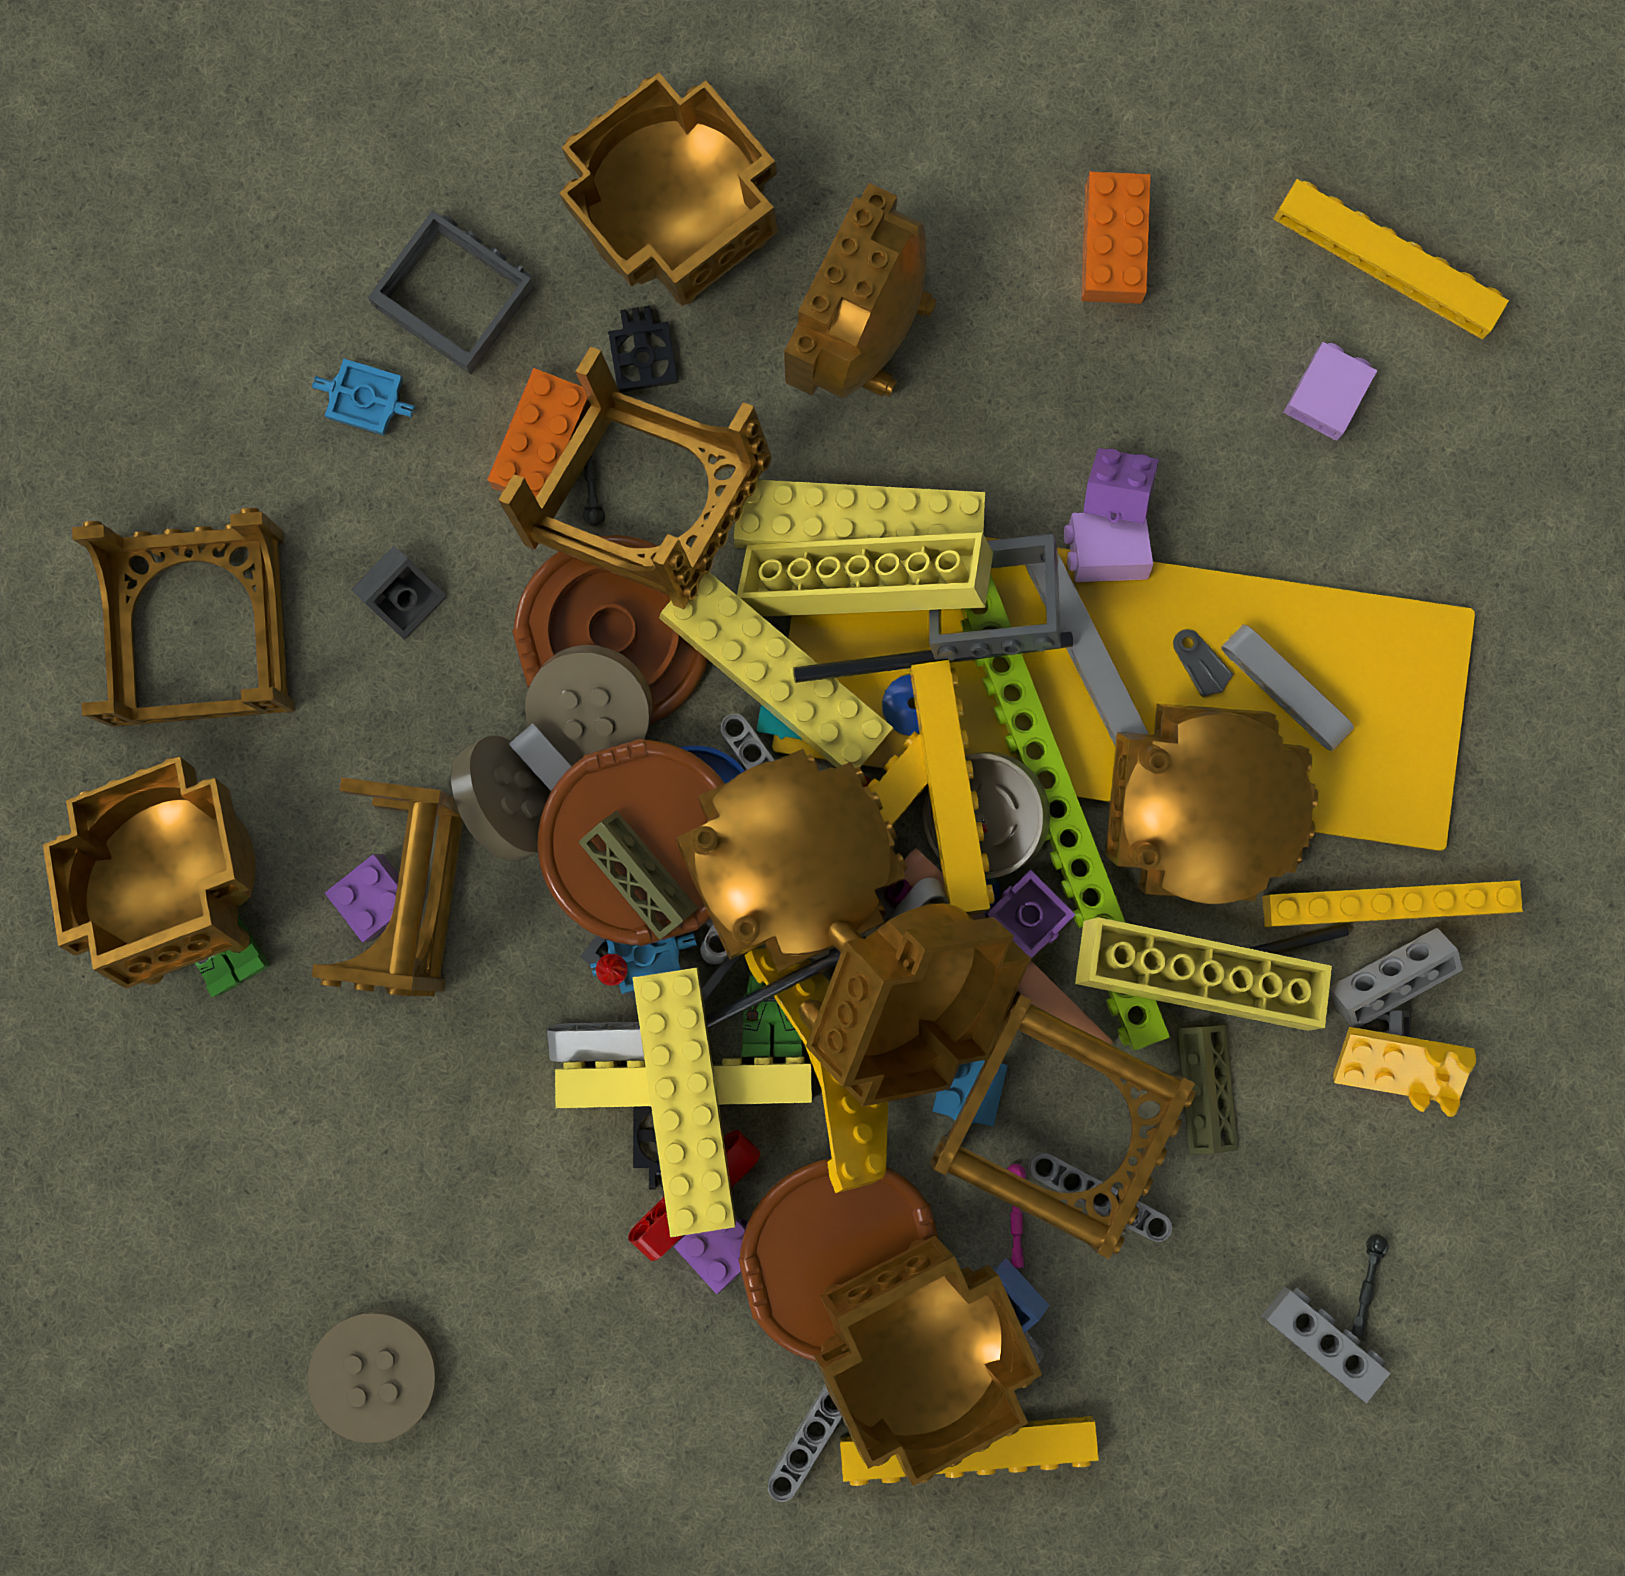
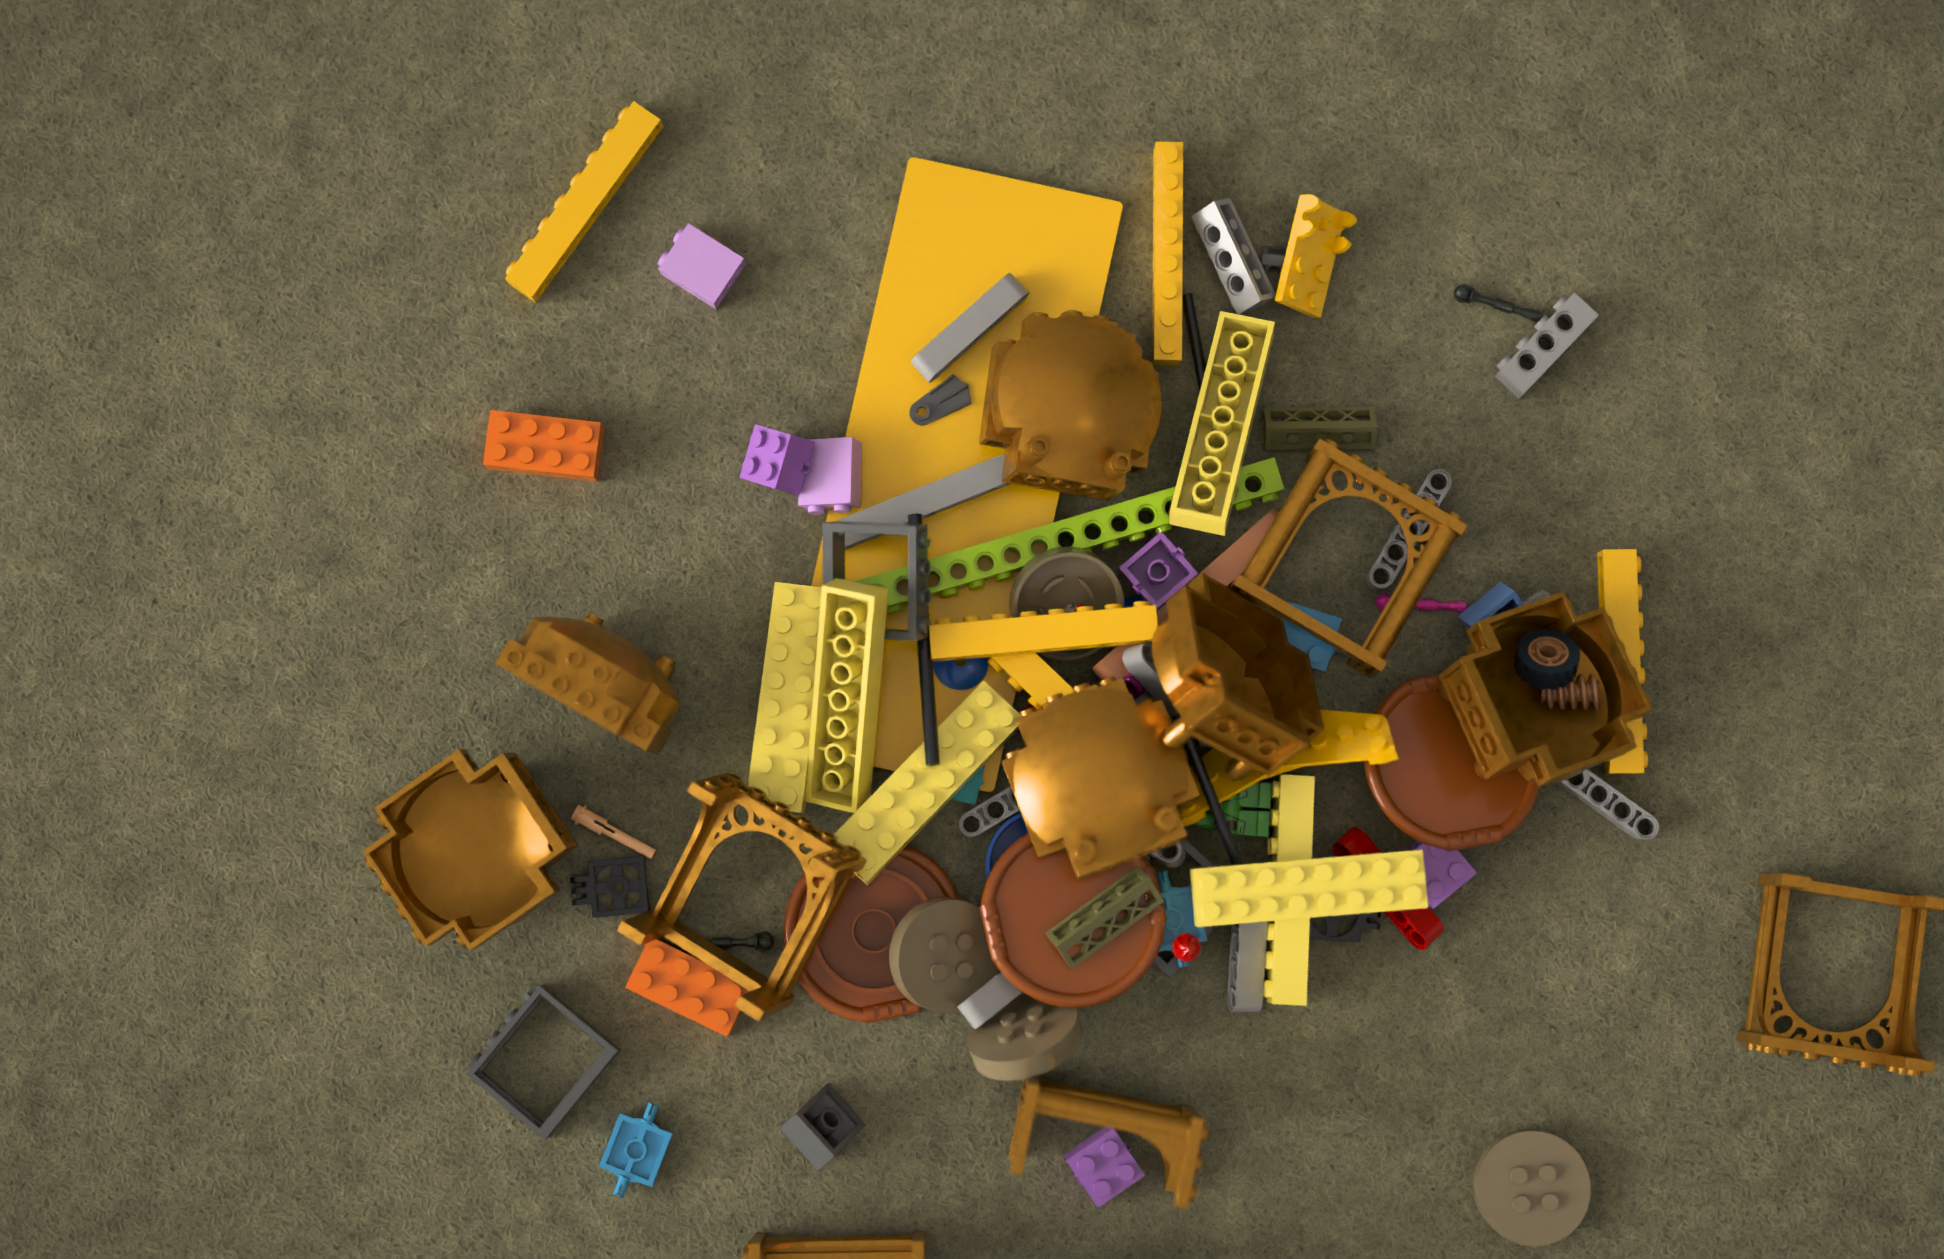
camera: 85 degrees left, 0 degrees up
(714, 319) = (589, 819): none -> light nougat pin
(928, 1390) = (1574, 692): none -> medium nougat piece
(963, 1360) = (1547, 659): none -> black wheel

